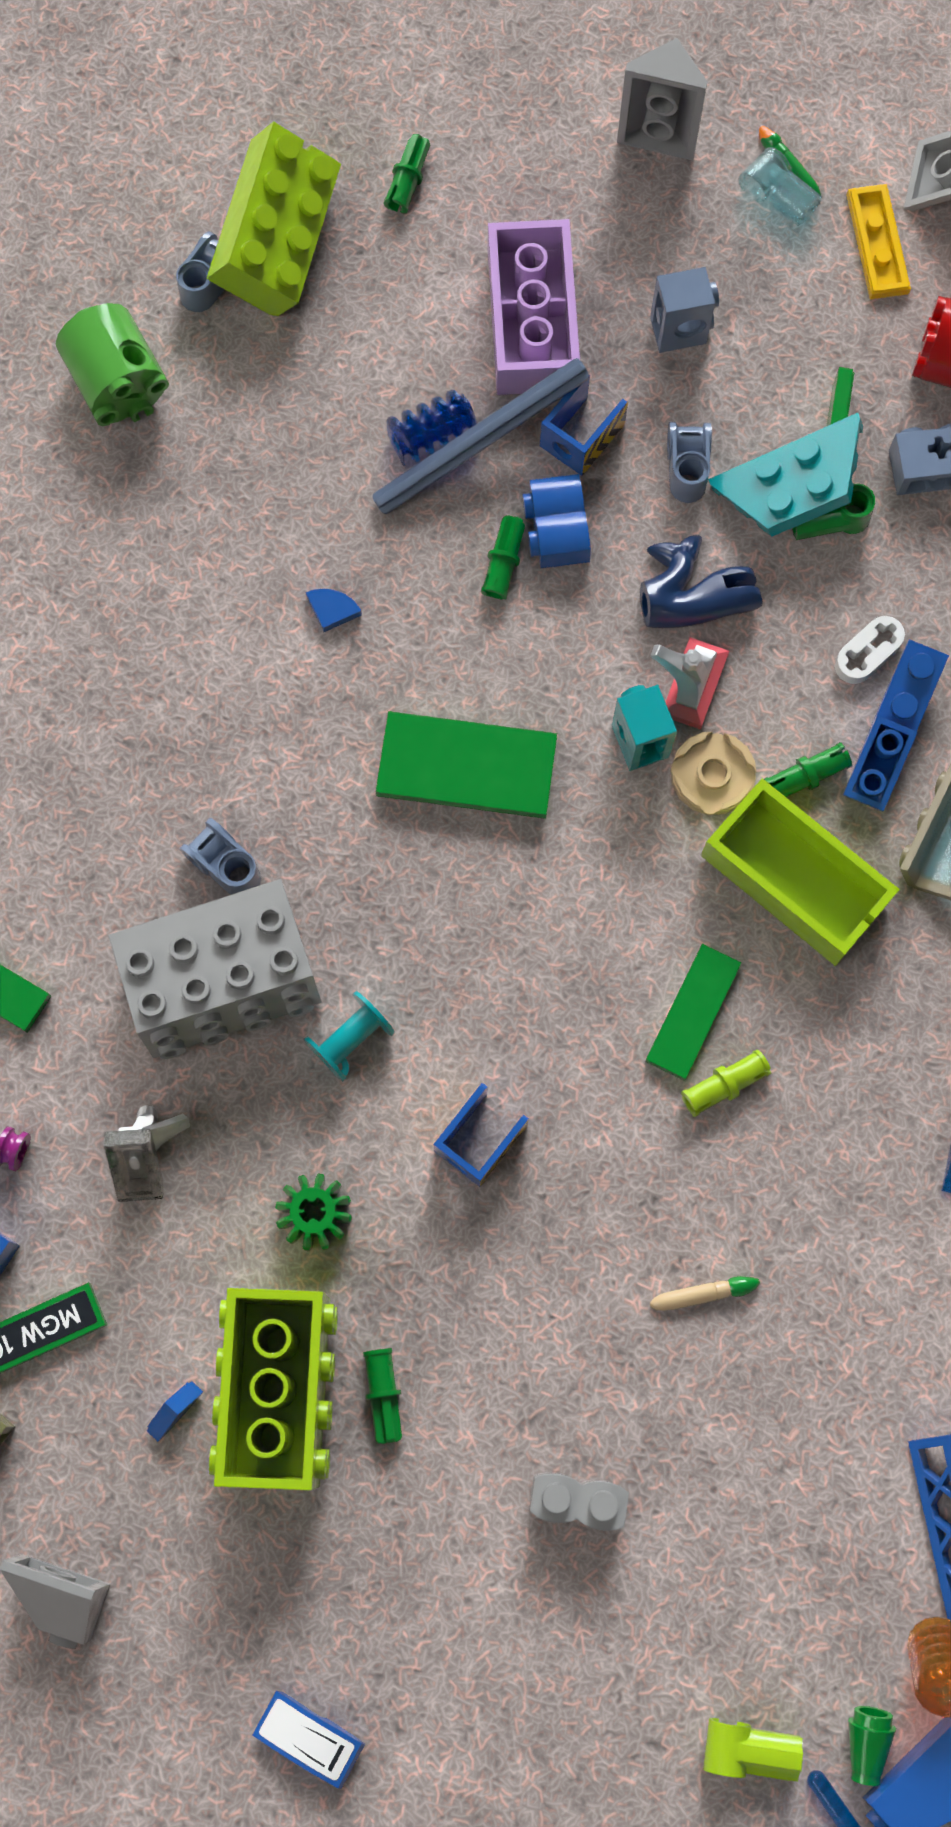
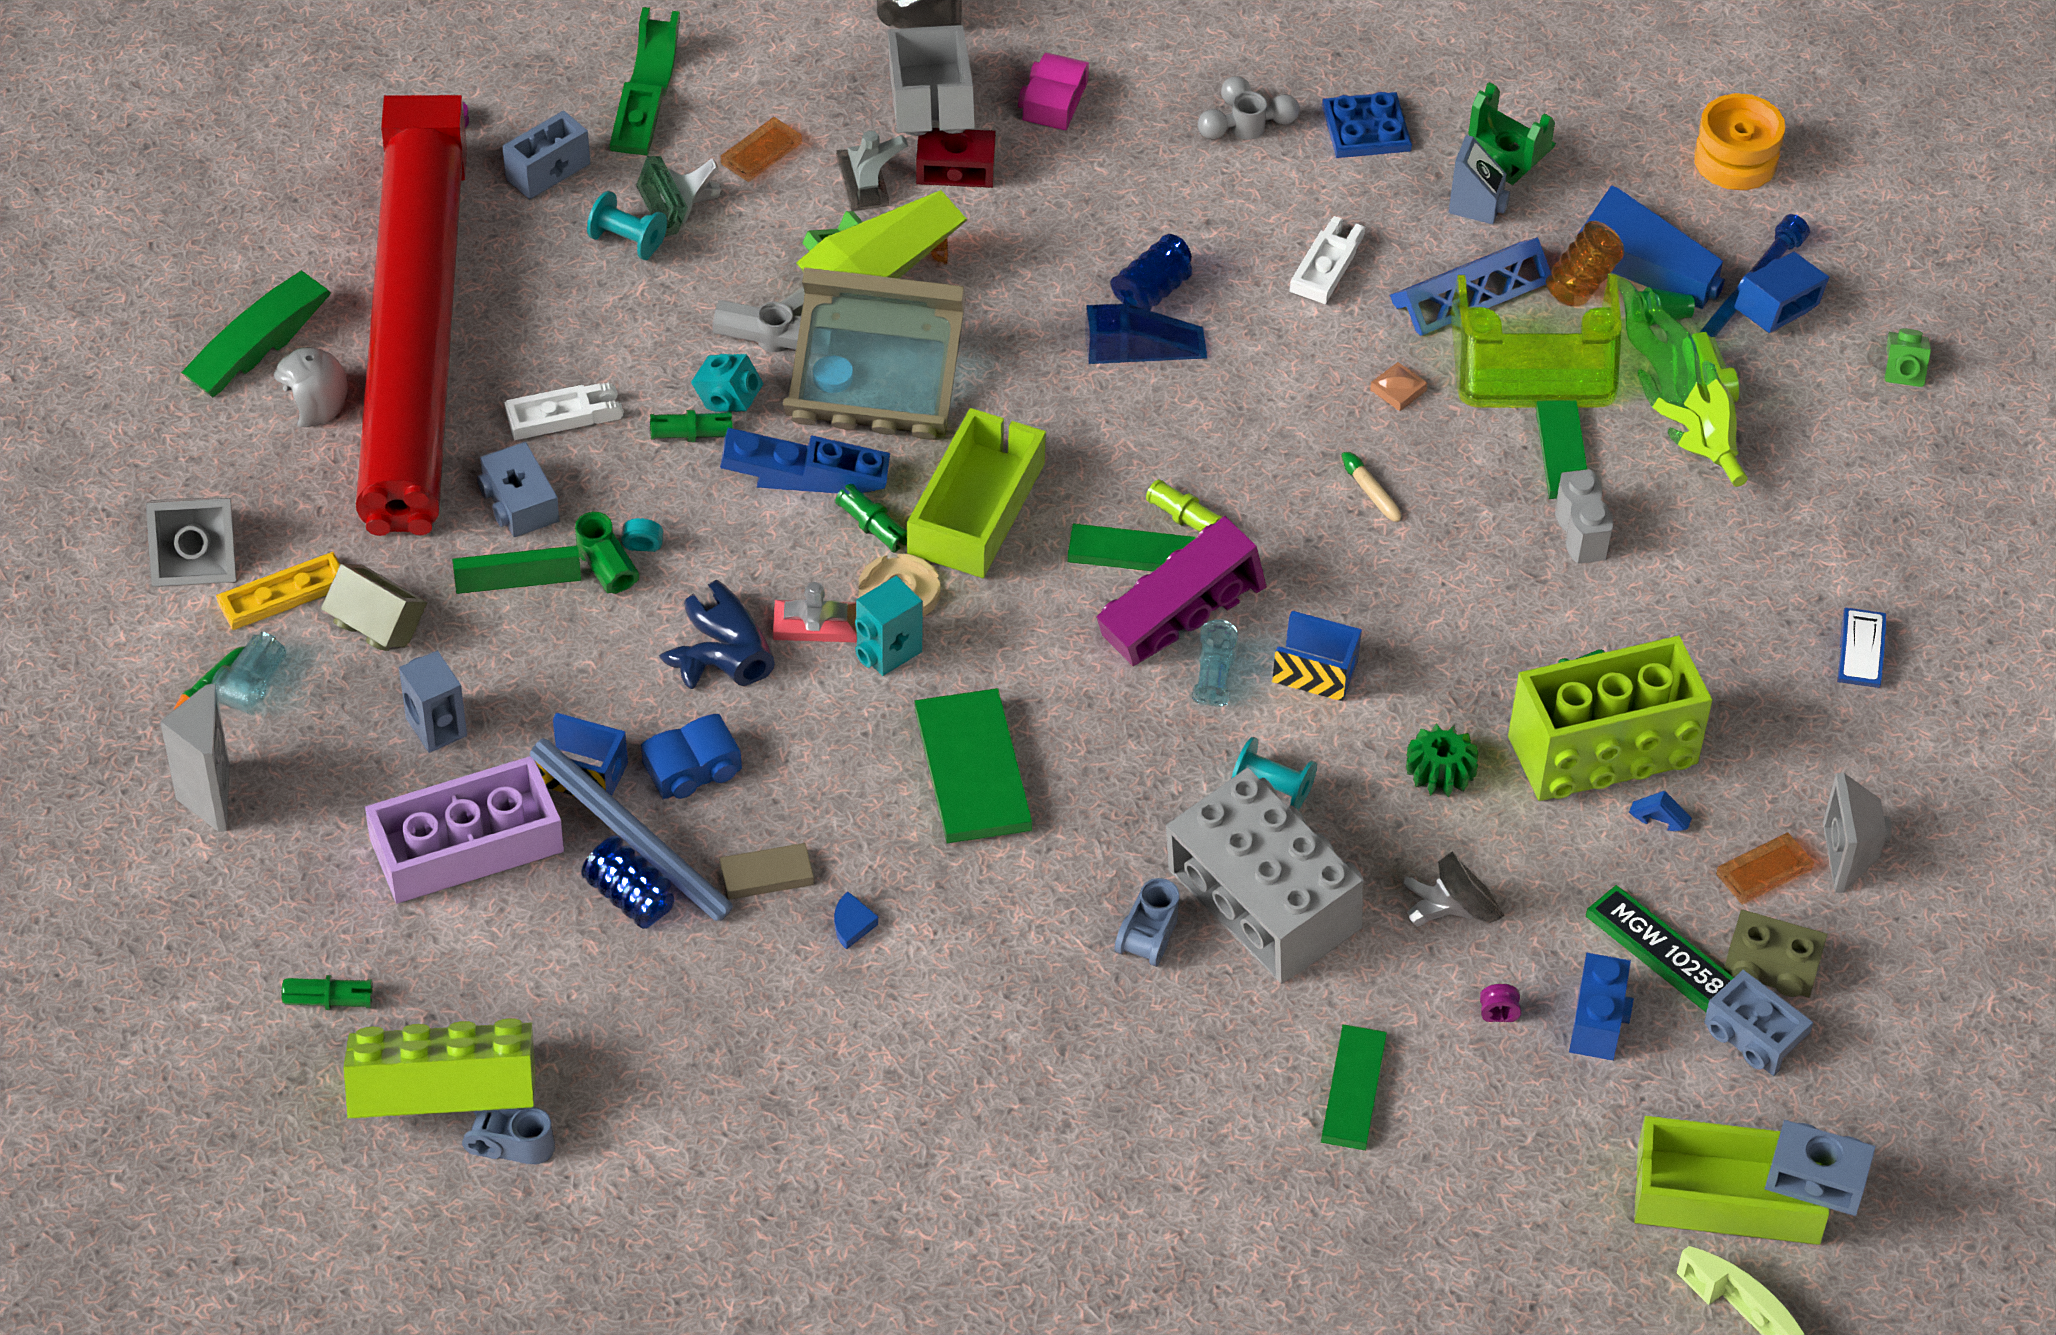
camera: 110 degrees left, 25 degrees down
(73, 1491) = (1764, 868): none -> clear orange tile
(111, 363) = (662, 1166): bright green cylinder -> none
(413, 553) = (766, 871): none -> dark tan tile
(503, 558) = (745, 793): green axle -> none
(508, 1032) = (1215, 660): none -> clear light blue connector
(604, 1029) = (1183, 592): none -> magenta wedge
(668, 1704) = (1682, 398): none -> piece
(688, 455) = (587, 673): sand blue piece -> none
(694, 1529) = (1560, 440): none -> green tile
(795, 479) = (588, 574): wing -> none
(795, 1544) = (1533, 367): none -> clear neon green windscreen
(822, 296) = (373, 606): none -> brick
(838, 1382) = (1398, 386): none -> nougat tile
(845, 553) = (642, 535): none -> teal tile
(863, 643) = (732, 501): white beam -> none

